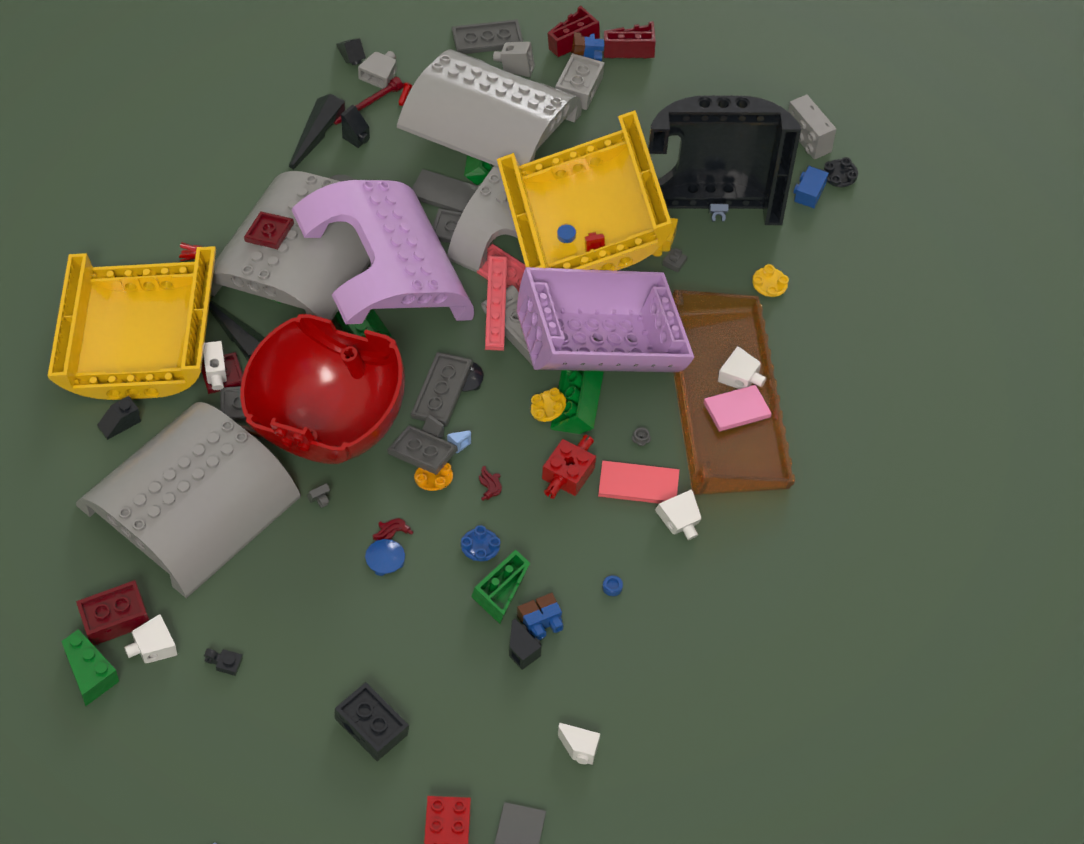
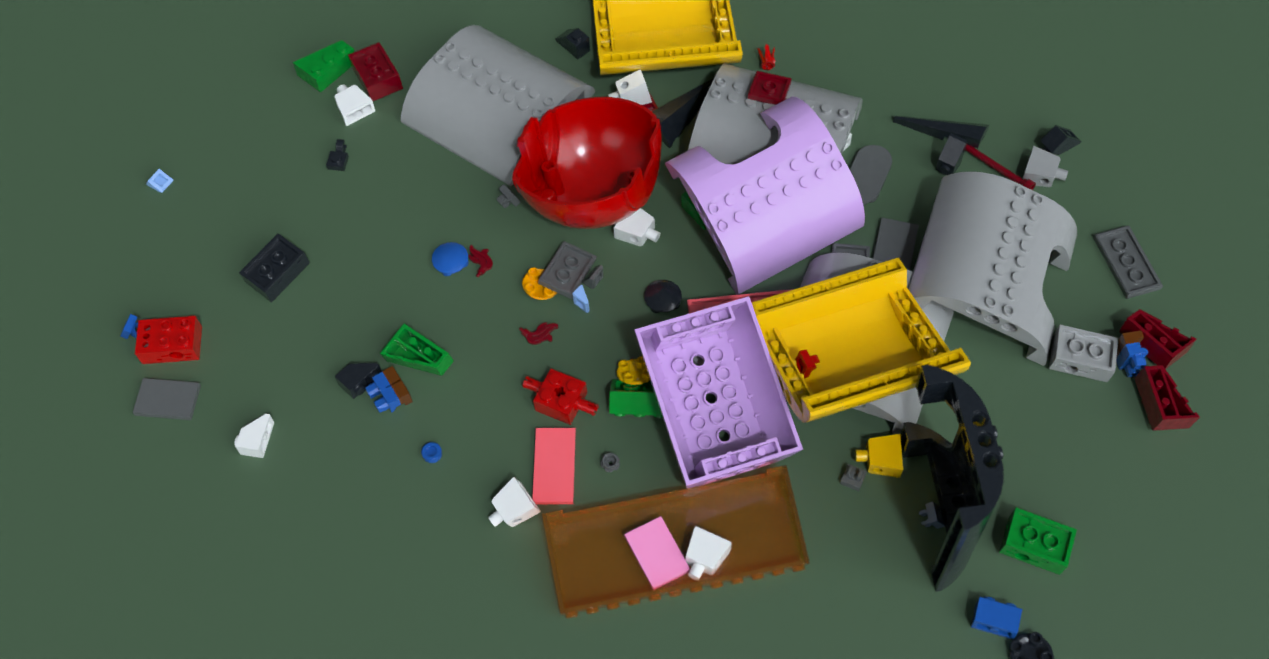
camera: 90 degrees right, 5 degrees up
(442, 388) = (640, 276): dark grey tile -> none
(480, 544) = (468, 332): blue dish -> none
(516, 58) = (1099, 280): light grey torso -> none
(566, 233) = (817, 338): blue tile -> none
(770, 281) = (843, 579): yellow dish -> none
(816, 130) = (1085, 607): light grey piece -> none

